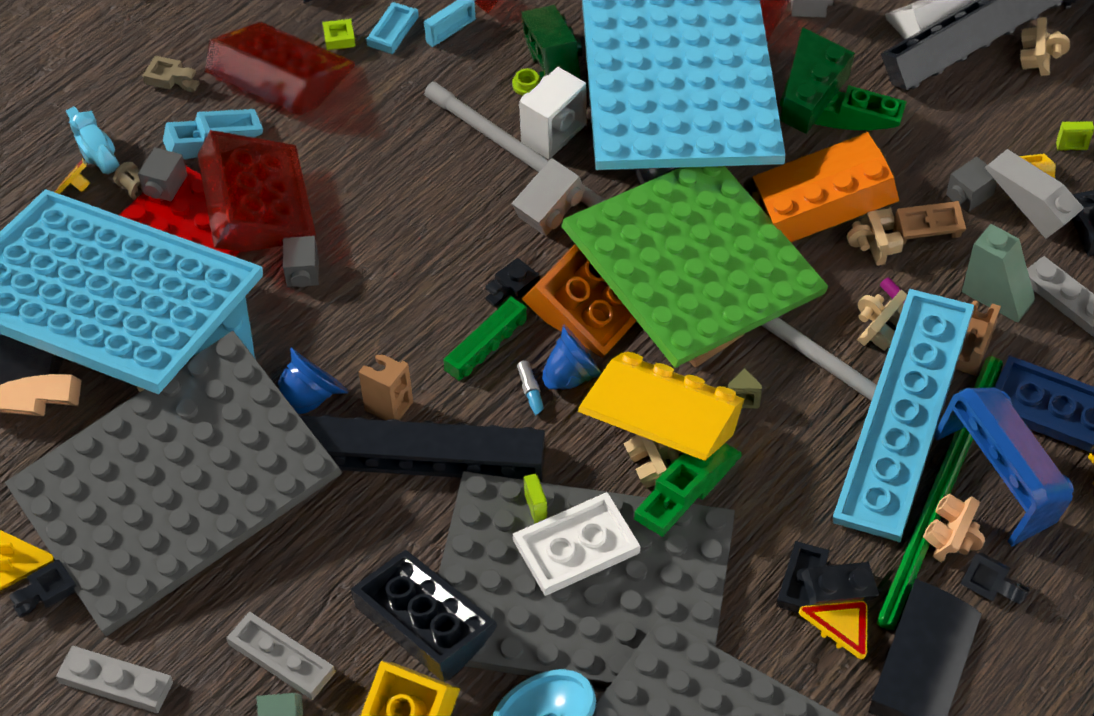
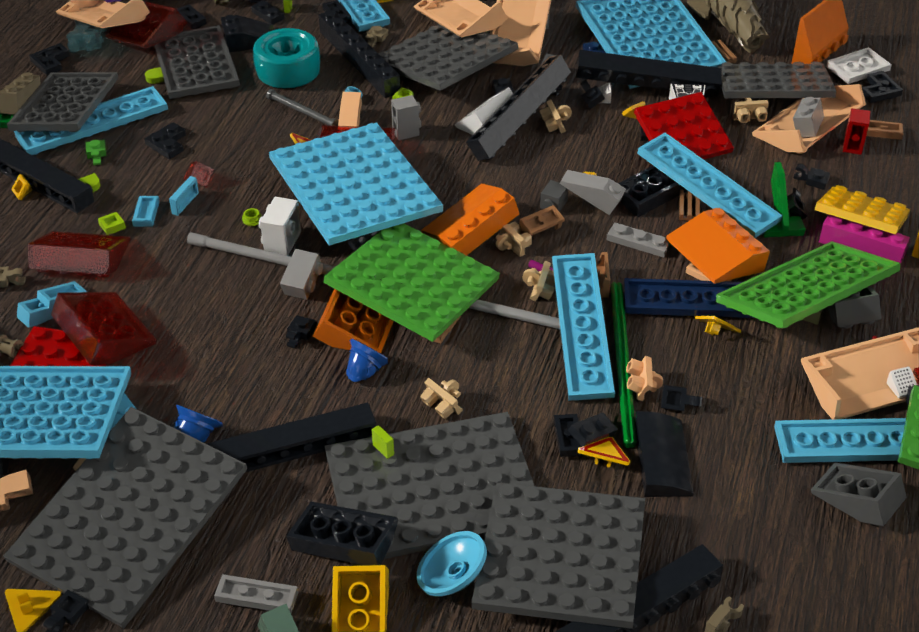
camera: 25 degrees left, 10 degrees down
(162, 174) = (31, 333): dark grey brick -> none
(300, 261) = (152, 358): dark grey brick -> none
(386, 391) = (252, 411): medium nougat hinge -> none
(485, 339) = (299, 367): green piece -> none
(530, 387) = (342, 385): light grey piece -> none
(551, 40) = (257, 188): dark green wedge -> none
(576, 543) = (421, 459): white plate -> none
(663, 405) = (436, 363): yellow slope -> none
(681, 486) = (471, 405): green slope -> none
(748, 388) = (479, 345): olive slope -> none
(815, 79) = (435, 161): dark green wedge -> none
(860, 110) = (464, 177): green slope -> none
(999, 274) = (597, 234): sand green slope -> none
(1013, 454) = (660, 319): blue windscreen -> none
(1075, 135) = (598, 156): lime tile -> none

